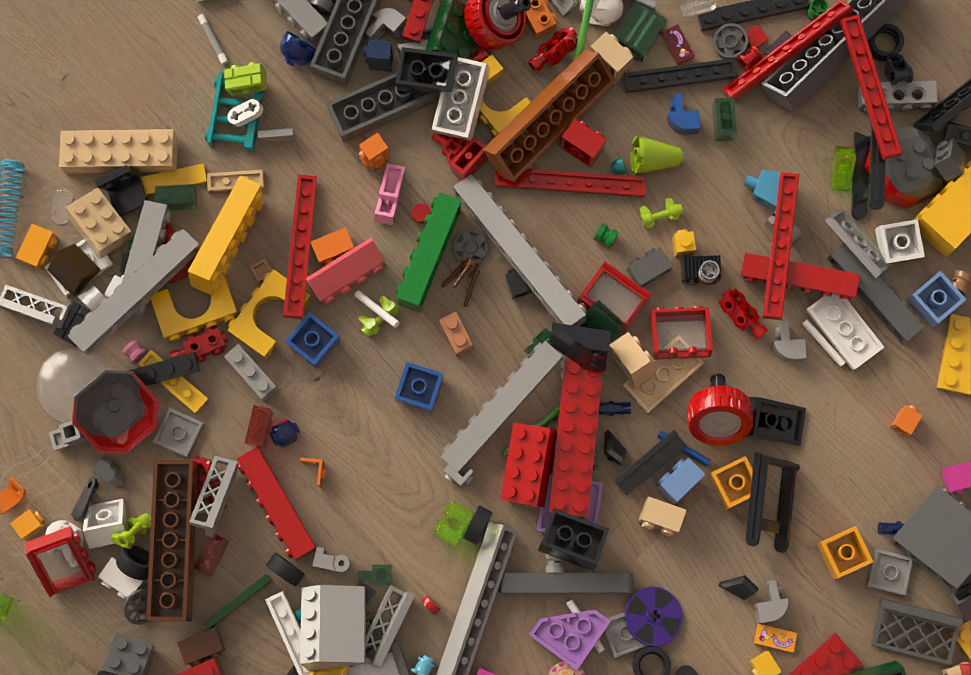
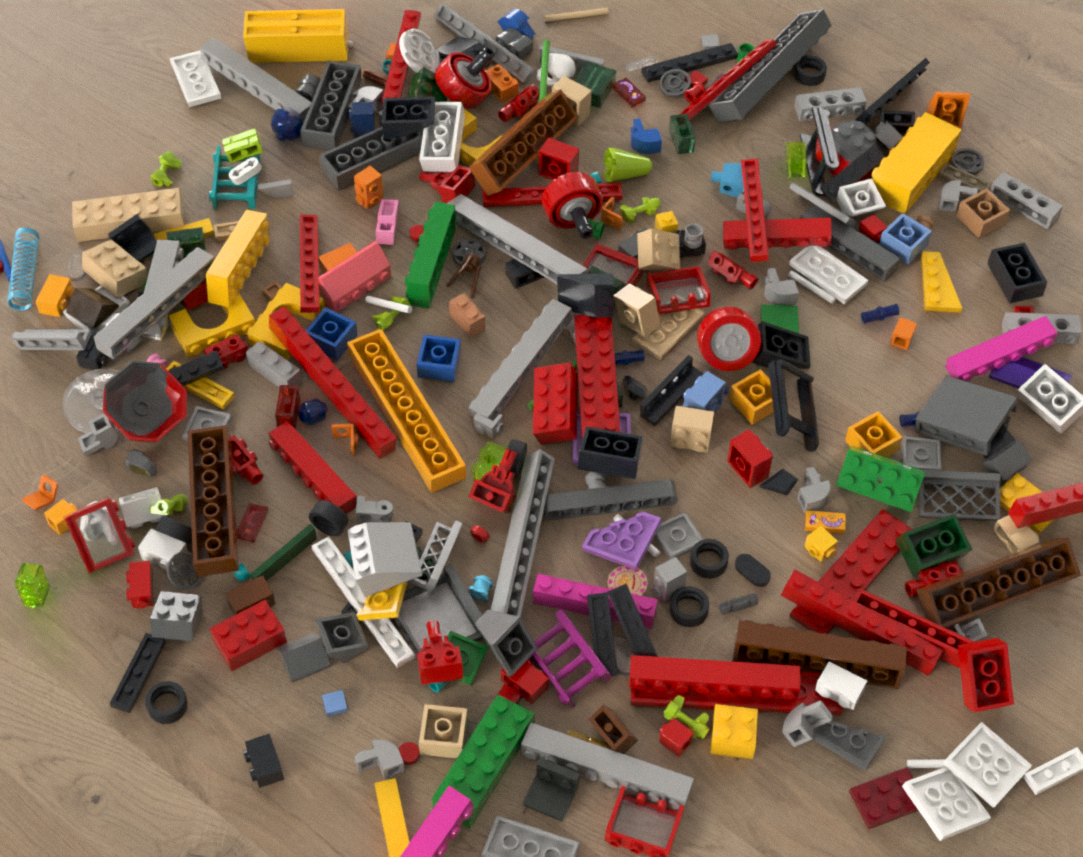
camera: 10 degrees left, 25 degrees down
(84, 501) = (120, 486): black piece -> none
(98, 615) = (141, 584): none -> red brick
(165, 78) = (167, 160): none -> lime piece
(197, 613) = (242, 574): none -> teal hinge
(213, 40) = (207, 130): light grey bar -> none
(219, 500) = (256, 460): light grey fence -> none
(305, 405) = (332, 382): none -> red brick
(377, 447) = (407, 411): none -> light orange brick
(380, 574) = (423, 516): clear green plate -> none
(452, 560) = (497, 485): none -> red brick
(587, 209) = (572, 201): none -> red wheel
(626, 224) = (610, 217): none -> orange bracket
(641, 624) = (701, 516): dark purple piece -> none
(668, 286) = (658, 250): none -> tan brick
(680, 75) = (635, 110): black plate -> none
(714, 560) = (750, 458): none -> red brick
(780, 382) = (781, 316): none -> green tile
(841, 605) = (880, 478): none -> green piece
(871, 87) = (805, 85): red tile -> none
(888, 390) = (880, 313): none -> clear blue pin
(897, 69) = (825, 81): black piece -> none
(899, 204) = (852, 172): none -> black plate
(905, 279) = (872, 228): none -> red brick

